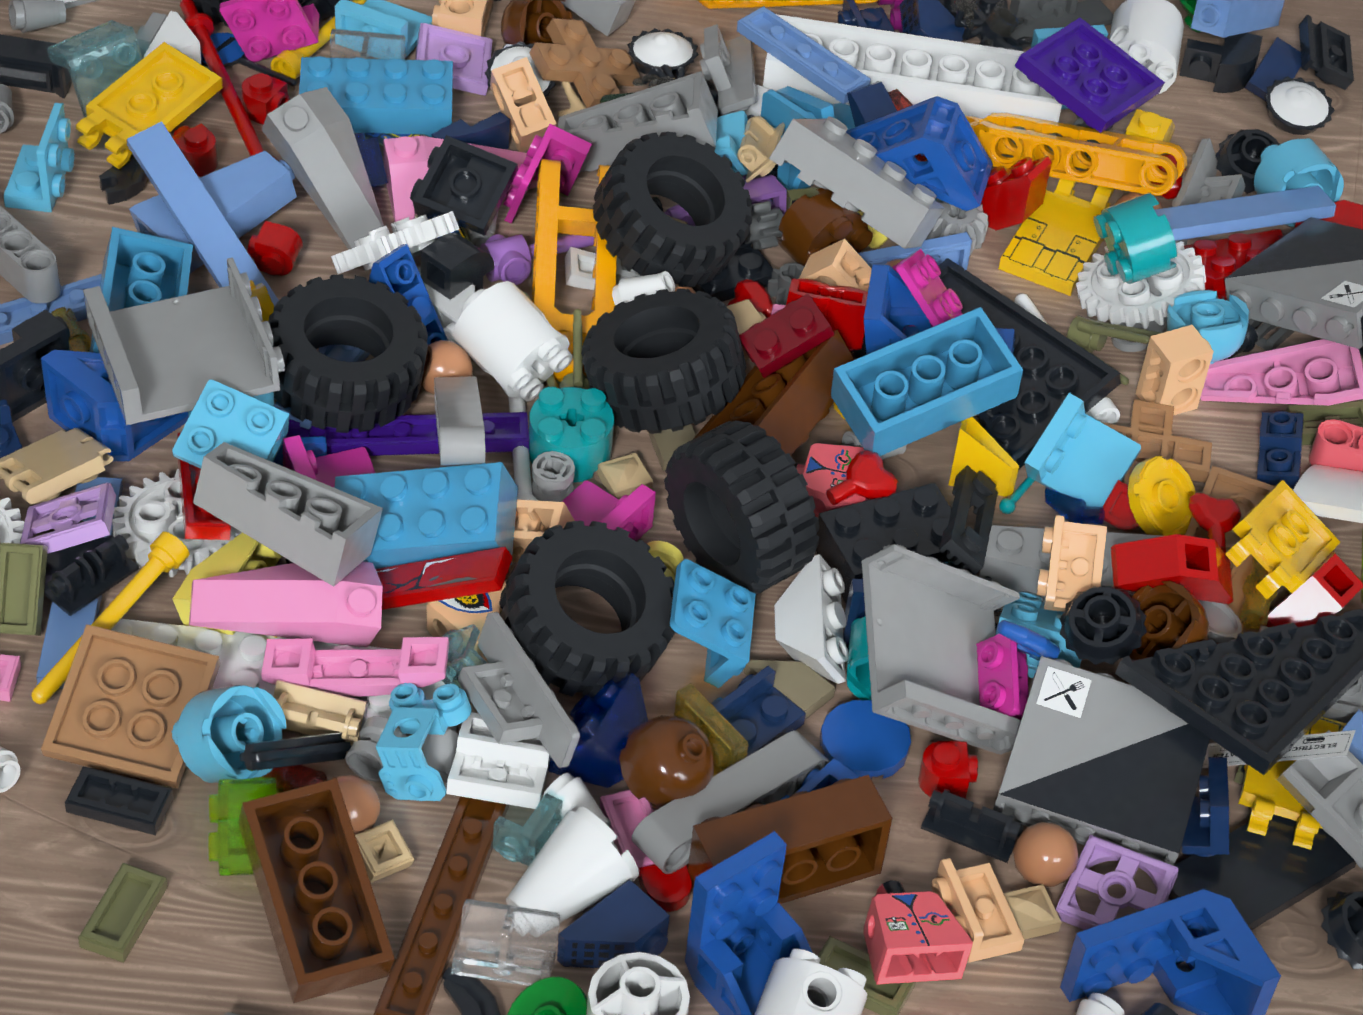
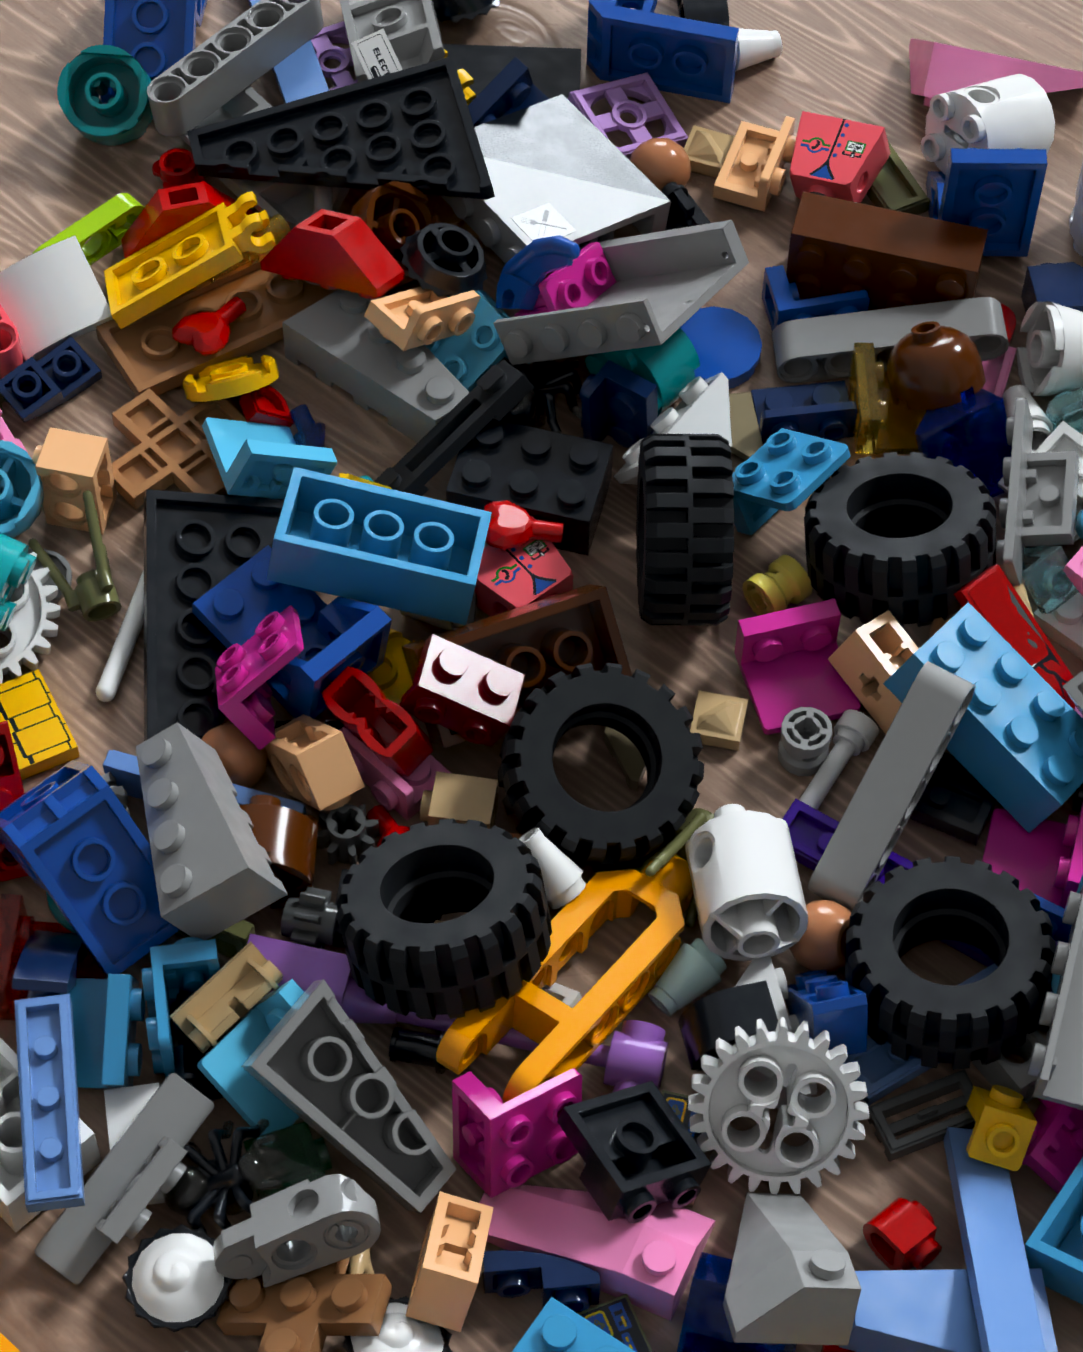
camera: 140 degrees left, 10 degrees up
(574, 424) = (749, 766): teal brick -> none
(609, 63) = (299, 1231): none -> light grey piece

